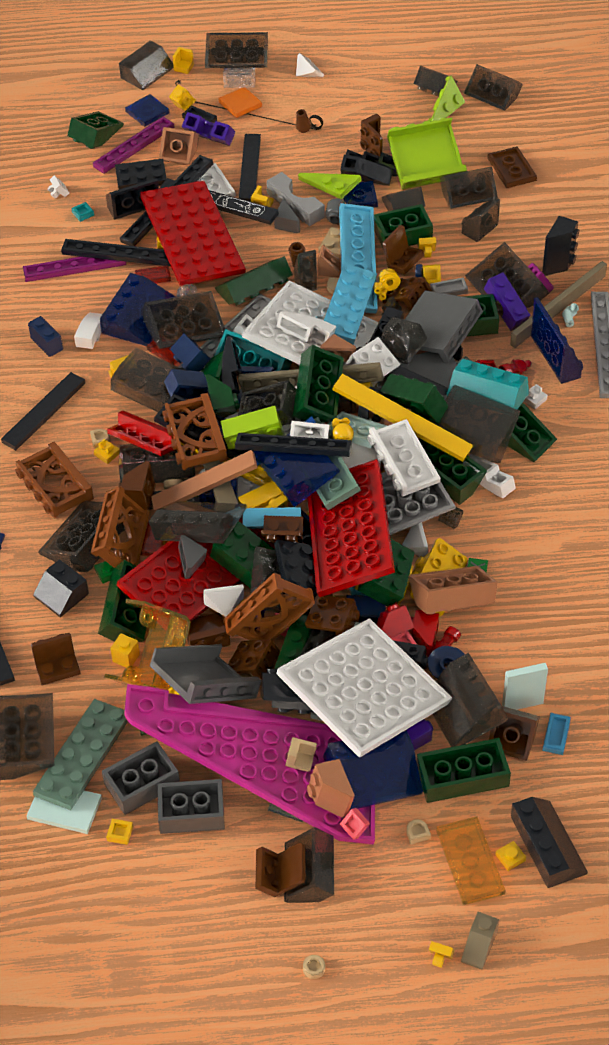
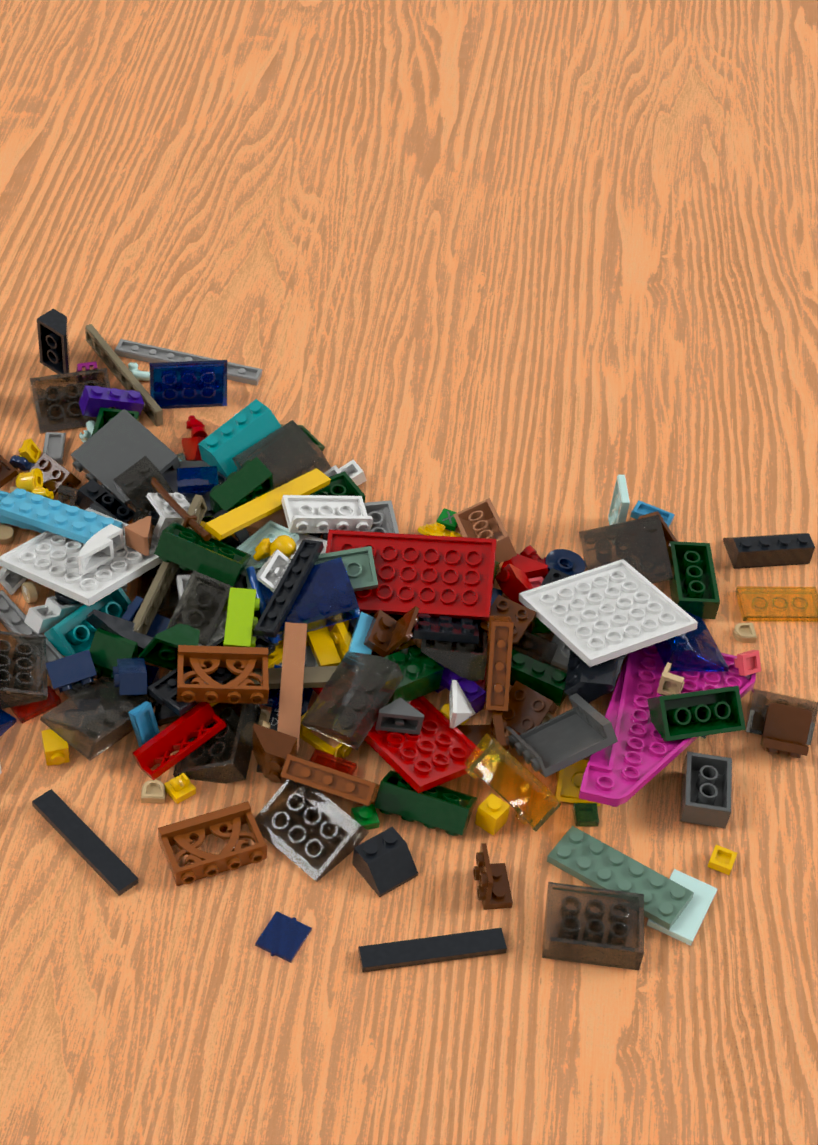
camera: 85 degrees left, 5 degrees down
(135, 778) = (665, 825): dark grey brick -> none
(150, 406) = (144, 722): none -> dark azure tile
(257, 773) = (697, 713): none -> dark green slope
(331, 788) = (717, 662): nougat slope -> none
(346, 366) = (189, 521): none -> reddish brown sword
(429, 371) = (197, 479): none -> clear blue tile
(510, 856) = (777, 576): yellow plate -> none

